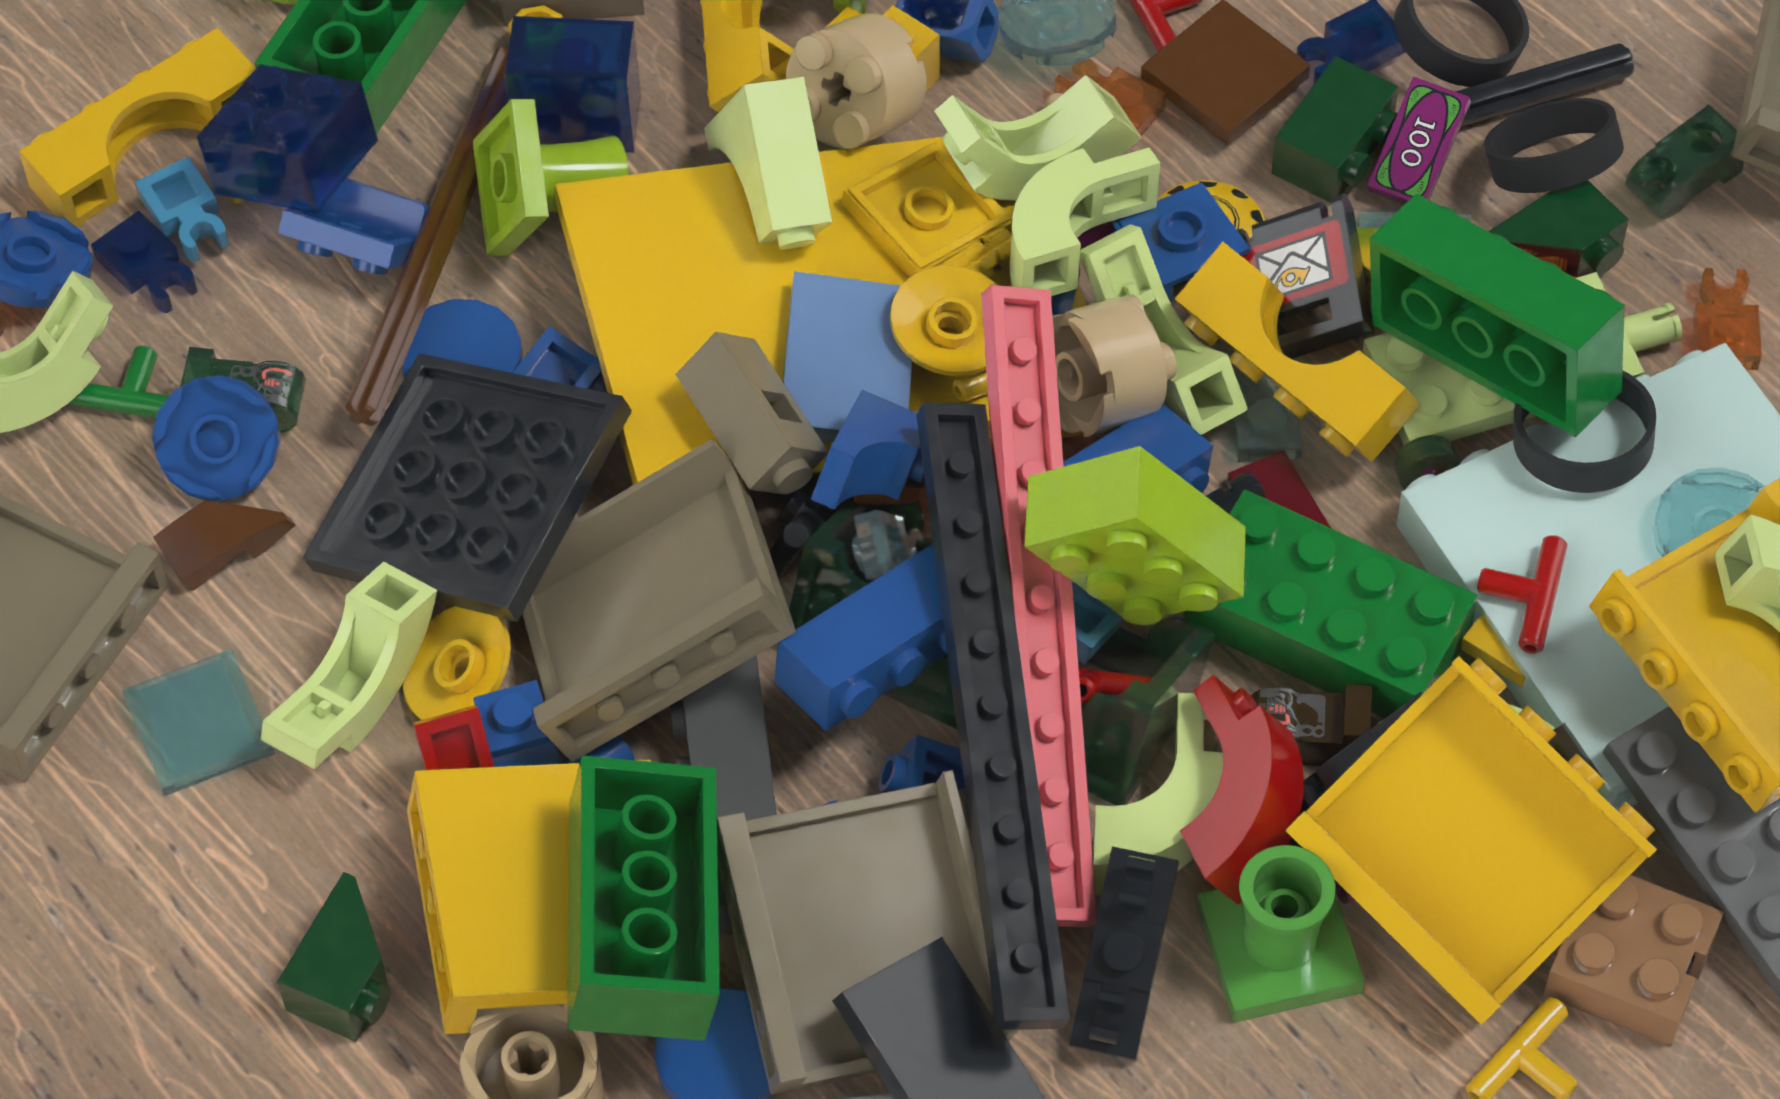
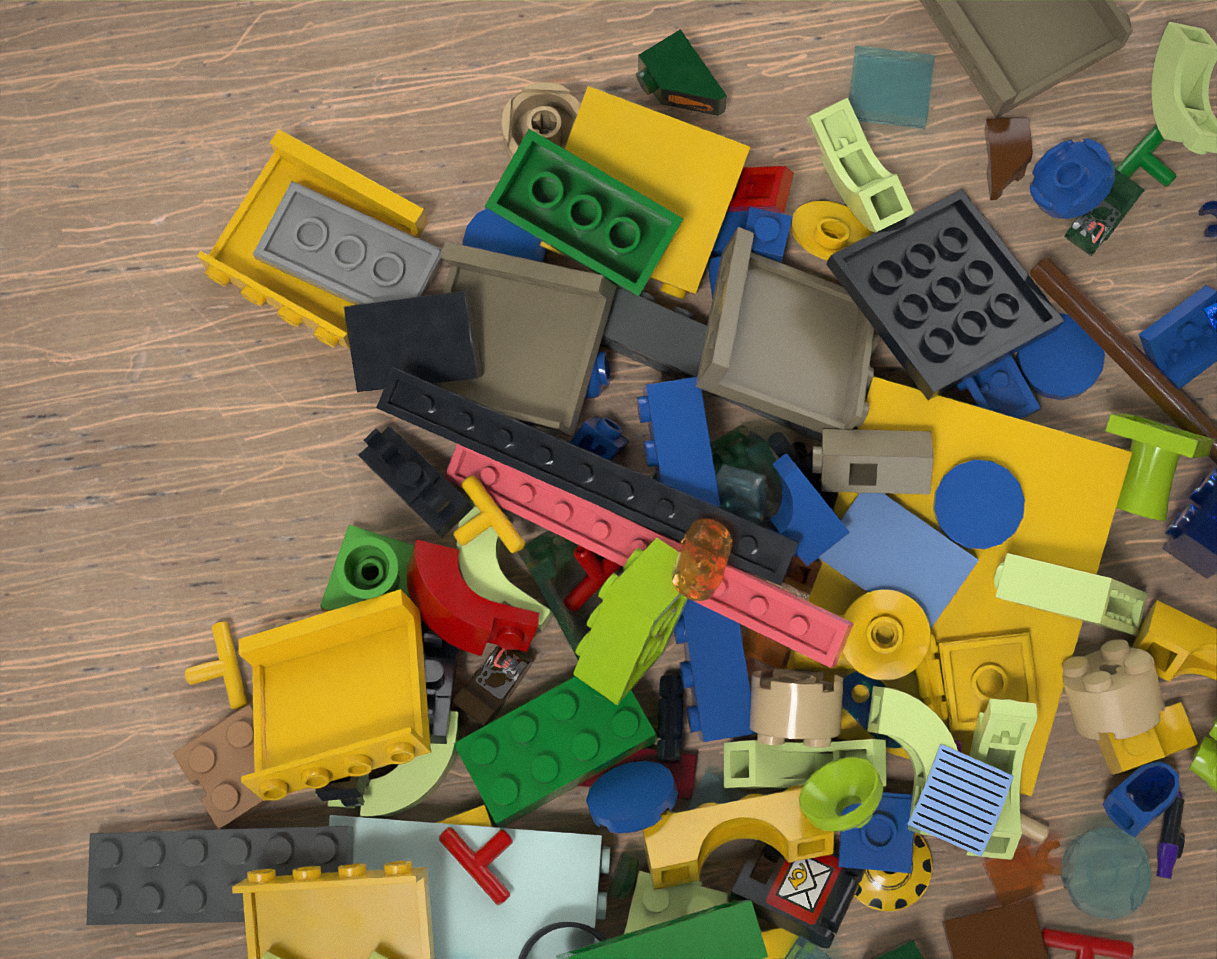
camera: 125 degrees right, 20 degrees up
(725, 294) = (978, 504): none -> blue tile
(1019, 475) = (703, 550): none -> clear orange plate
(1091, 140) = (961, 800): none -> light blue sticker
(1113, 819) = (489, 517): none -> yellow piece
(1154, 259) = (838, 786): none -> lime piece
(1335, 475) = (632, 796): none -> blue tile

